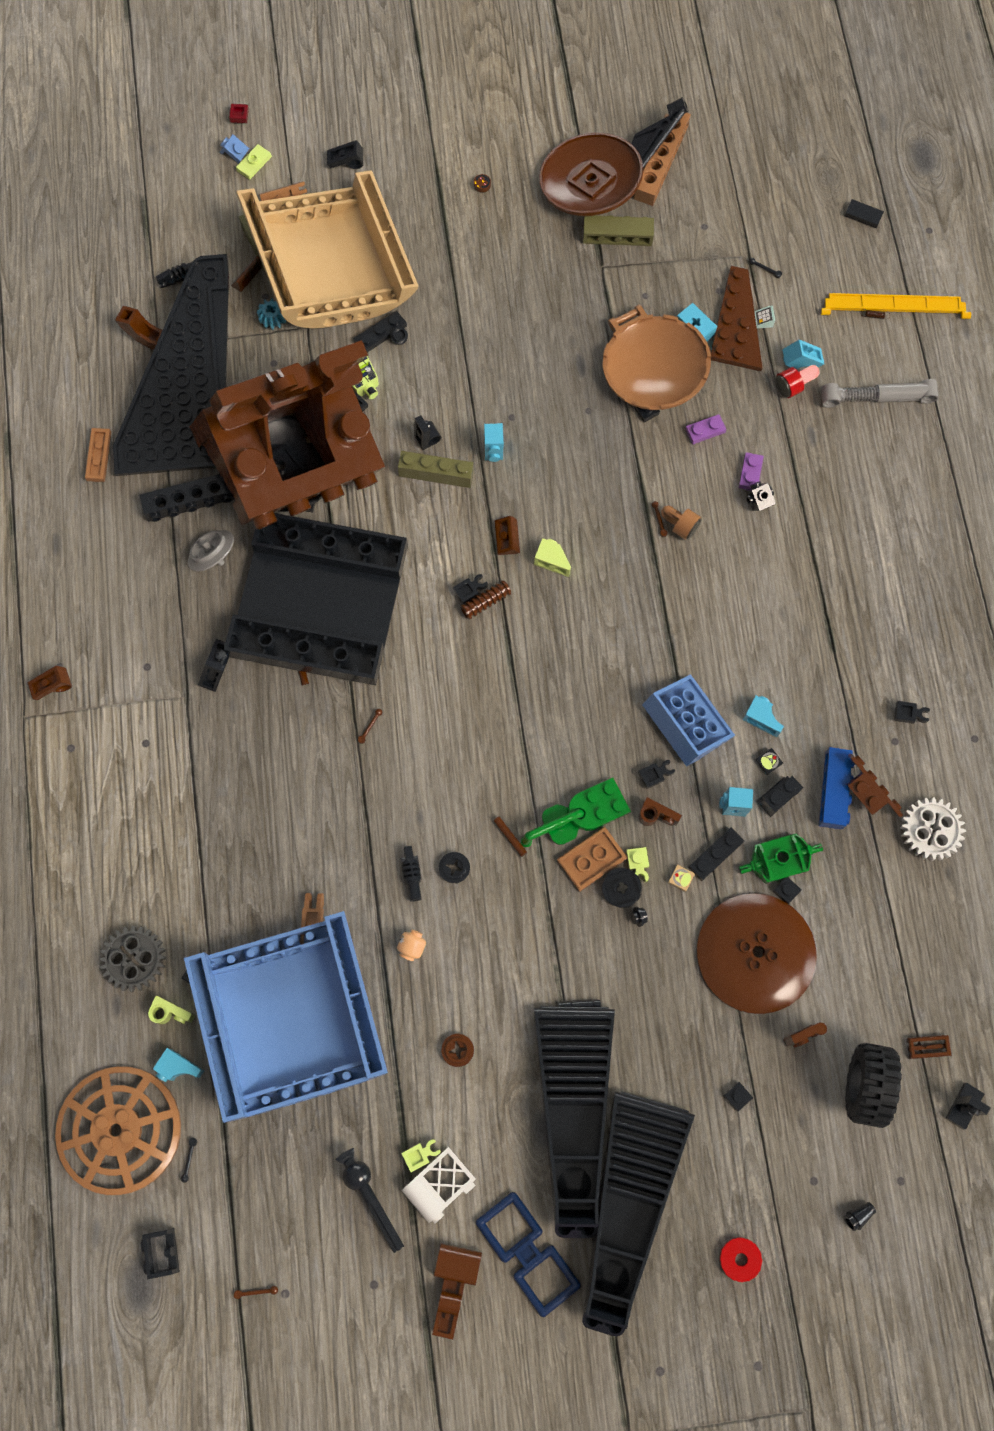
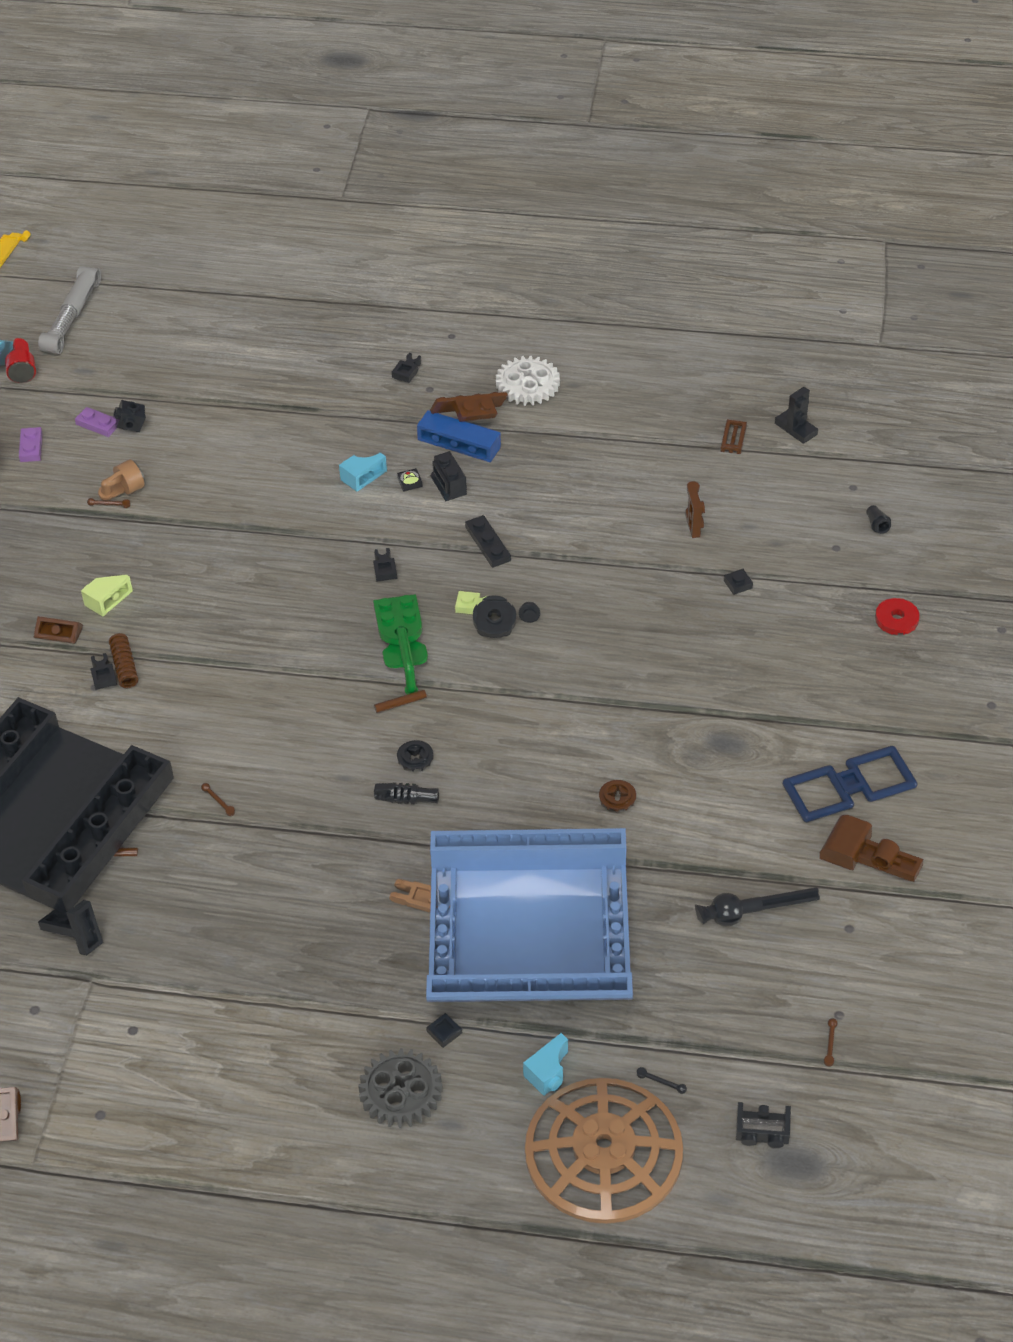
camera: 70 degrees left, 25 degrees down
(169, 1009) = (478, 1059): yellowish green plate -> none
(411, 945) = (487, 808): light nougat head -> none
(417, 1155) = (721, 853): yellowish green plate -> none
(424, 1196) = (764, 854): white piece -> none
(574, 1077) = (717, 705): black brick -> none
(588, 1003) = (604, 682): black wheel -> none
(592, 859) = (453, 639): medium nougat tile -> none
(636, 1181) = (826, 683): black brick -> none
(658, 810) = (423, 575): reddish brown plate -> none
(681, 878) = (502, 573): tile -> none
(688, 719) = (339, 528): medium blue slope -> none
(728, 958) = (581, 552): reddish brown dish -> none
(736, 801) = (442, 503): medium azure brick -> none
(769, 868) = (516, 503): green plate -> none
(787, 890) = (546, 498): black plate -> none
(873, 1085) = (767, 448): black tyre -> none

